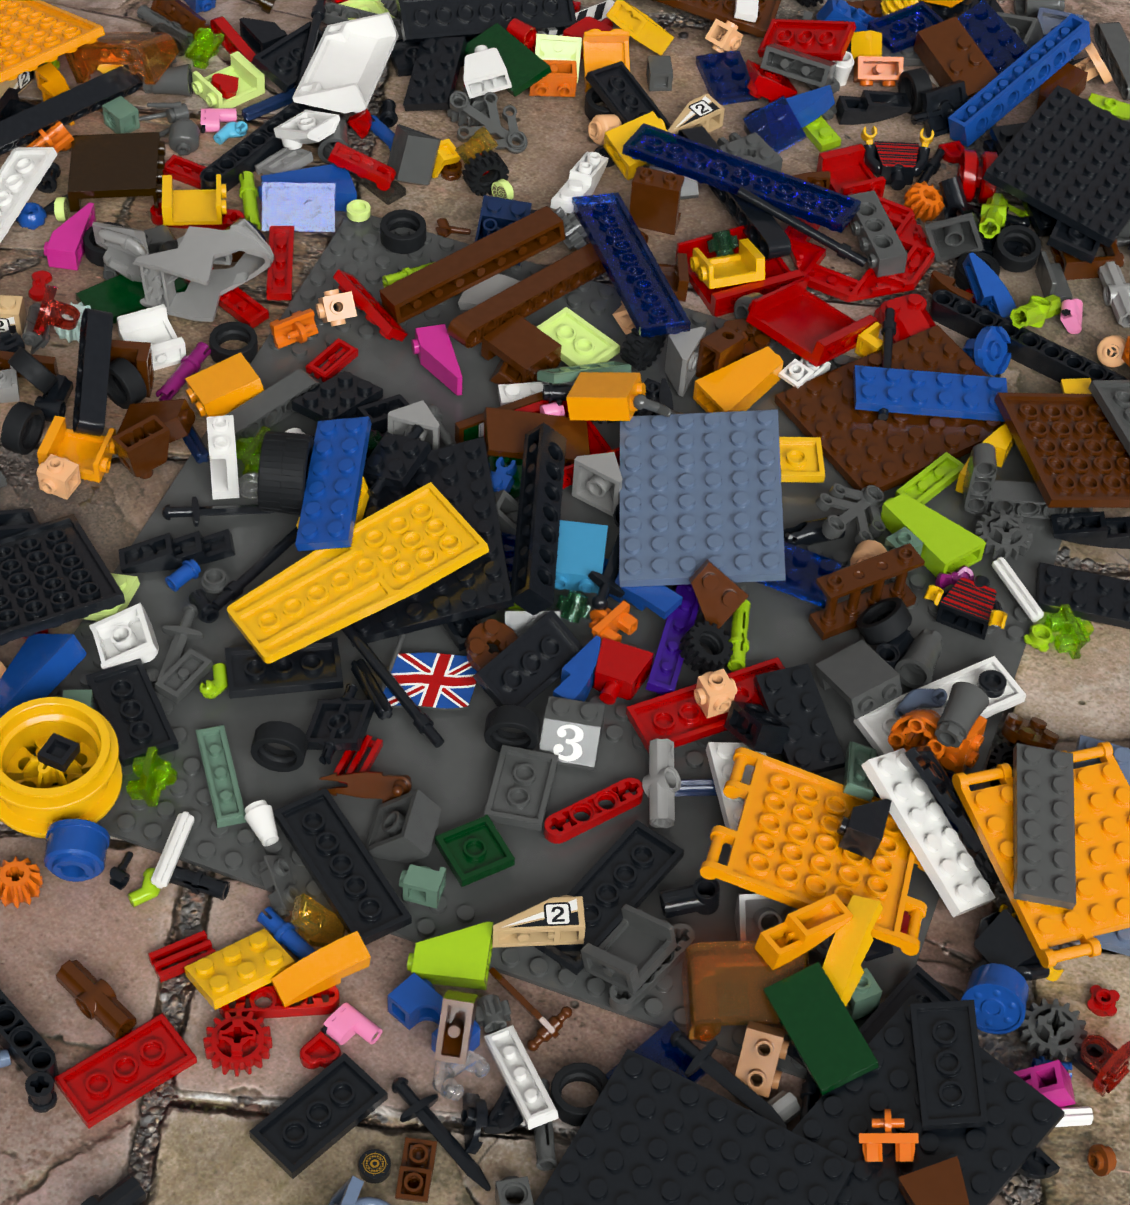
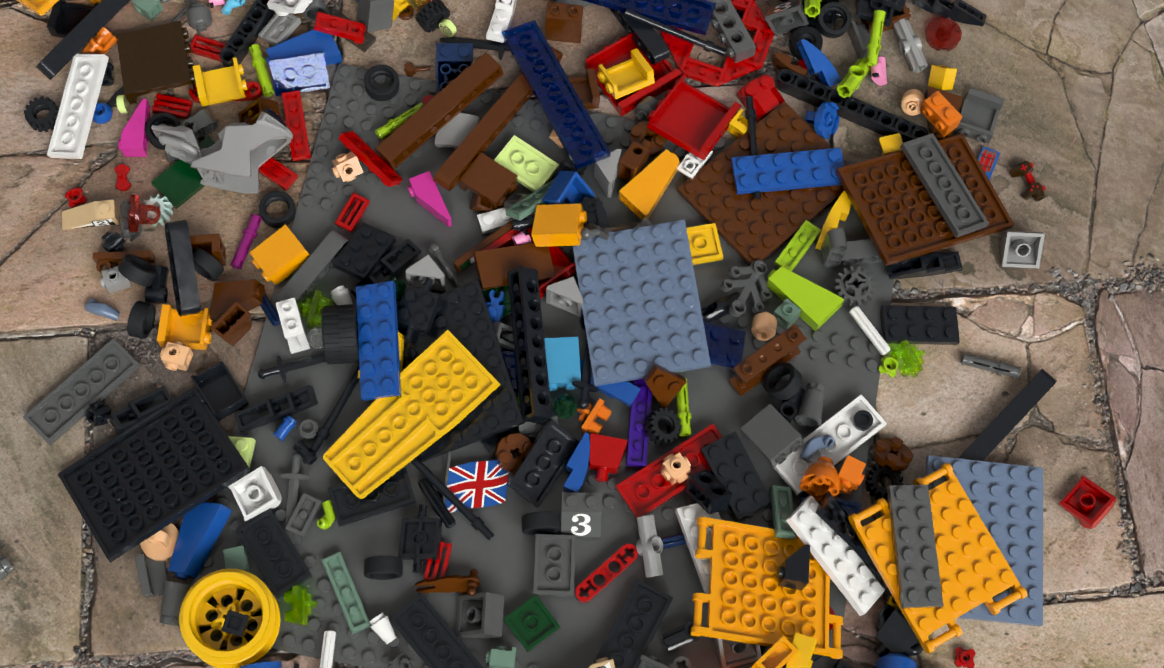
camera: 10 degrees left, 20 degrees up
(106, 522) = (219, 391): none -> black container
(125, 218) = (159, 102): none -> red tile
(153, 327) = (216, 214): white panel -> none
(294, 328) = (319, 191): orange hips -> none
(358, 210) = (344, 66): yellowish green tile -> none
(574, 231) = (506, 60): dark grey gear -> none
(628, 357) = (569, 188): none -> blue panel
(723, 243) = (618, 53): clear green gear -> none
(944, 580) = (830, 327): magenta piece -> none
(960, 713) = (848, 469): dark grey plant -> none
(968, 606) = (839, 354): torso -> none
(1068, 275) = (875, 38): none -> lime pin

